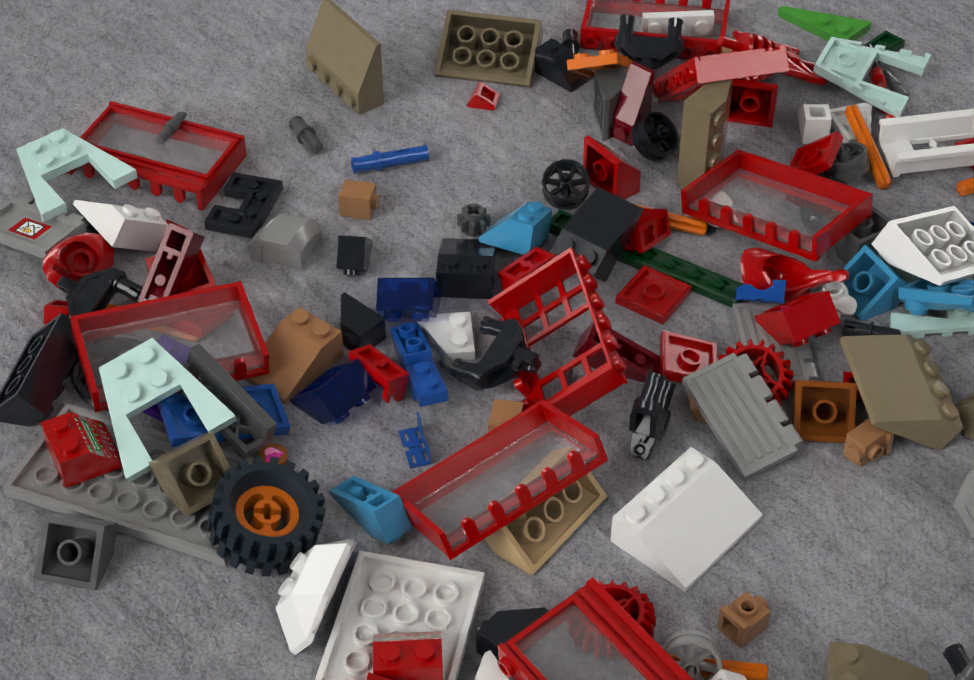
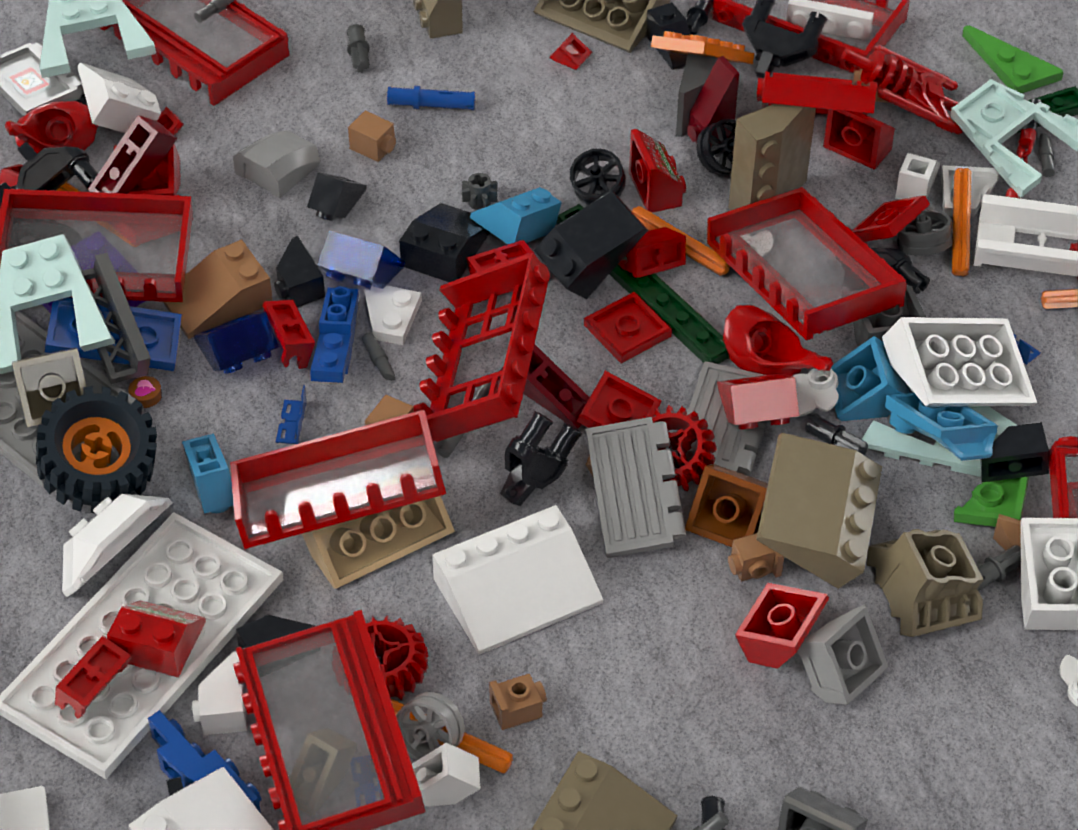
camera: 20 degrees right, 5 degrees up
(258, 197) = (273, 106): black plate -> none
(503, 358) = (418, 353): black connector -> none
(772, 294) = (744, 363): blue piece -> none
(928, 488) = (779, 623): none -> red slope

